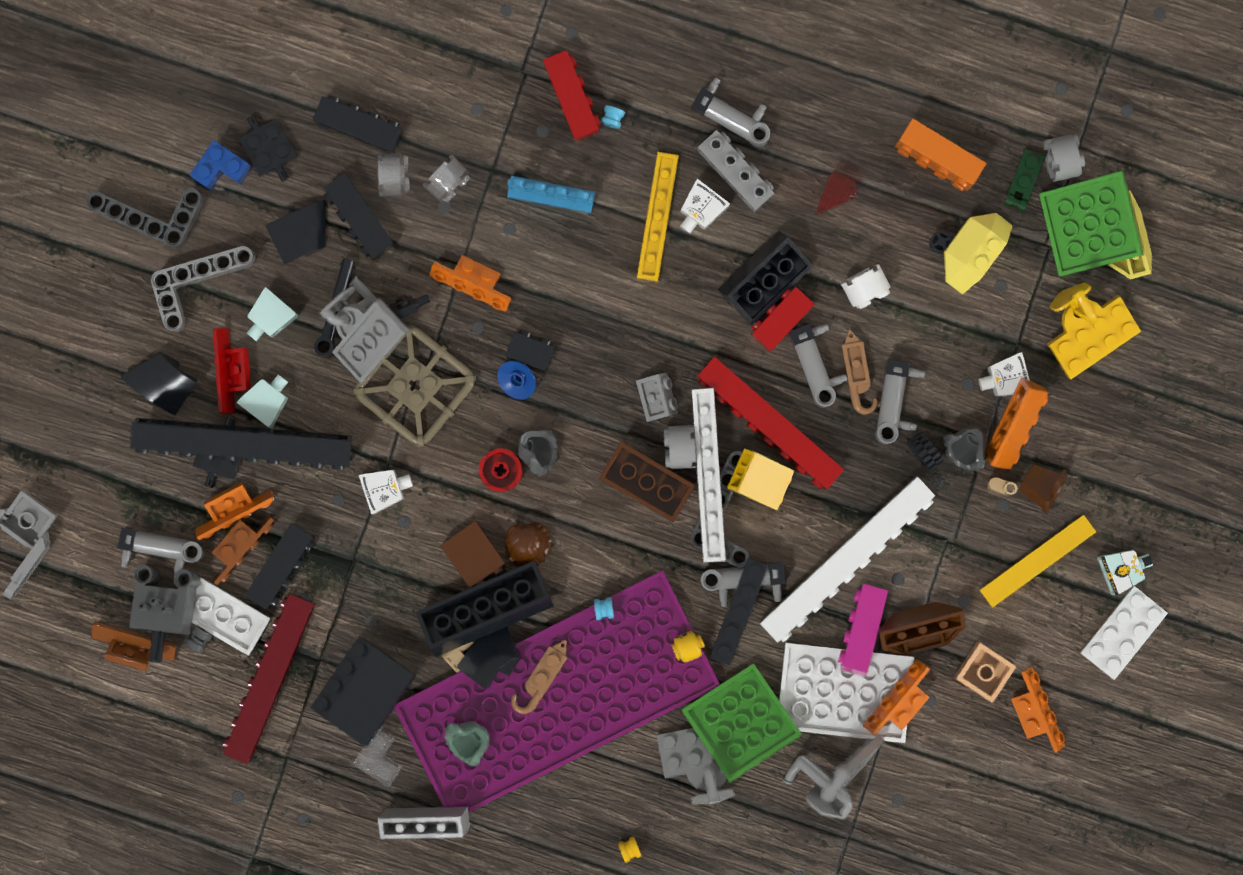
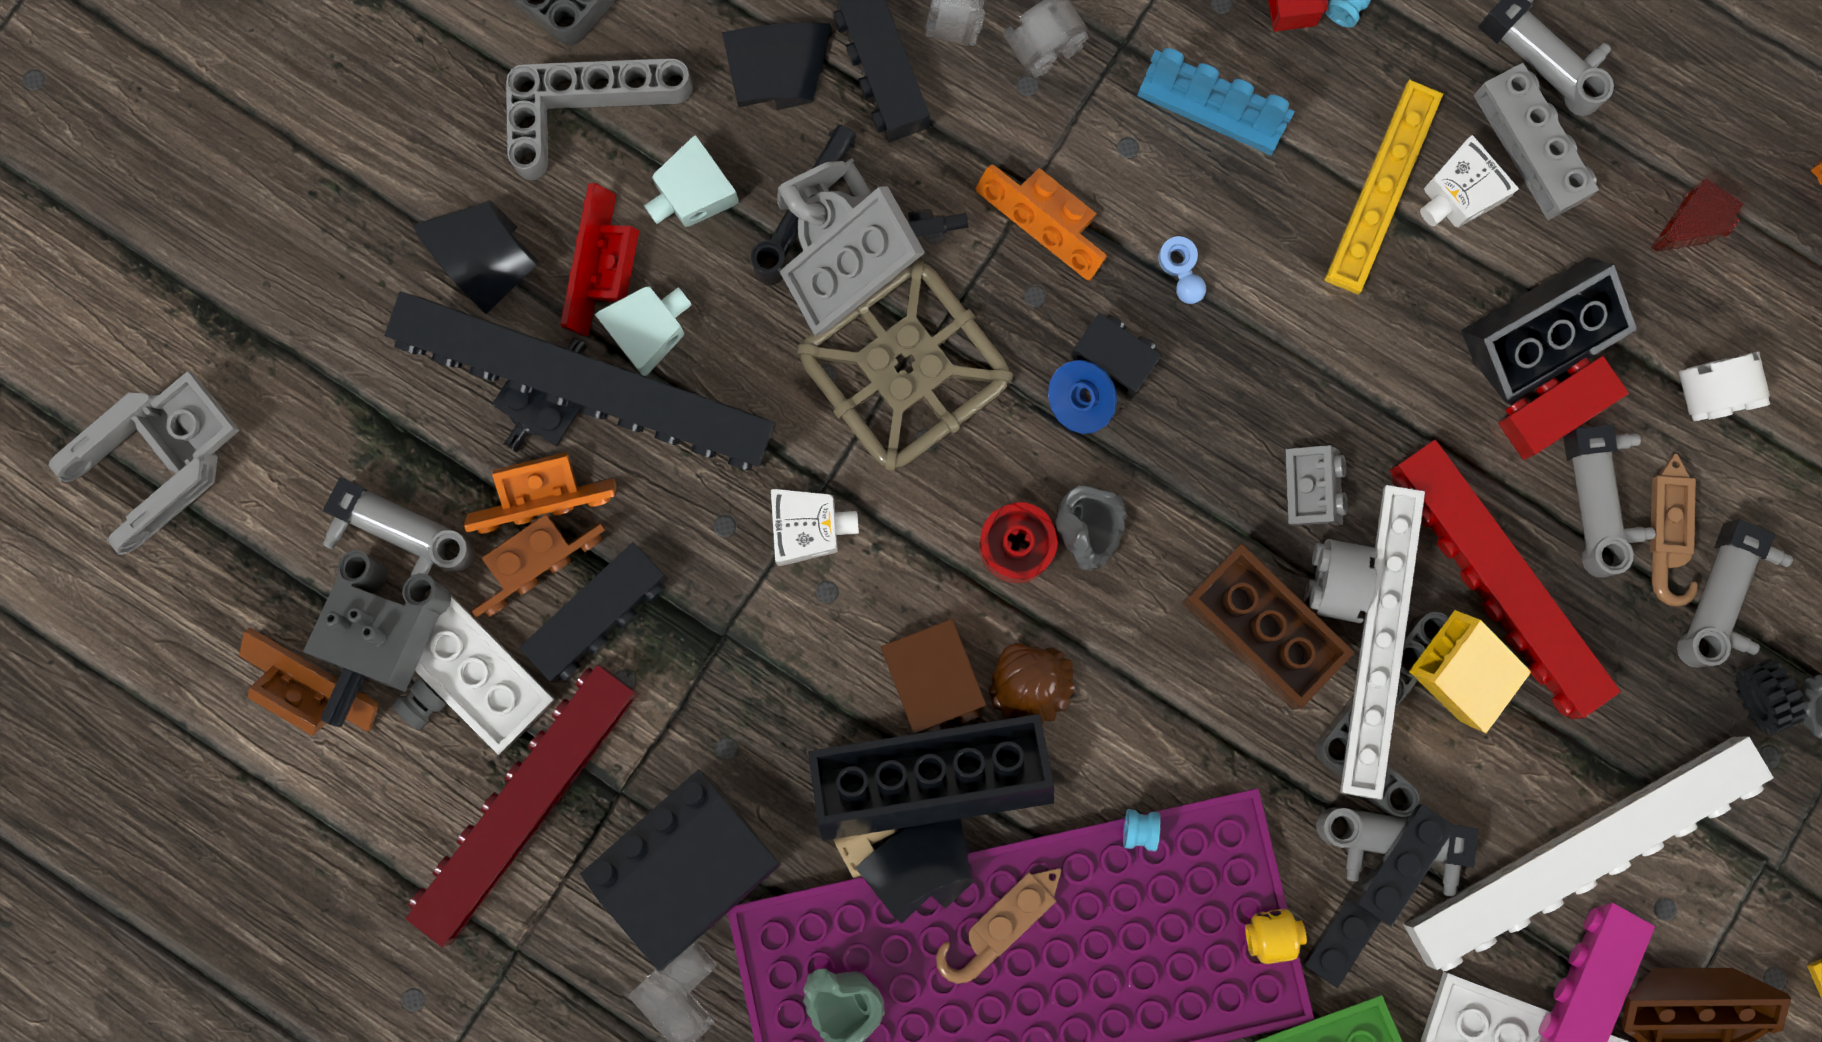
camera: 15 degrees right, 5 degrees down
(562, 302) = (1190, 287): none -> light blue plate

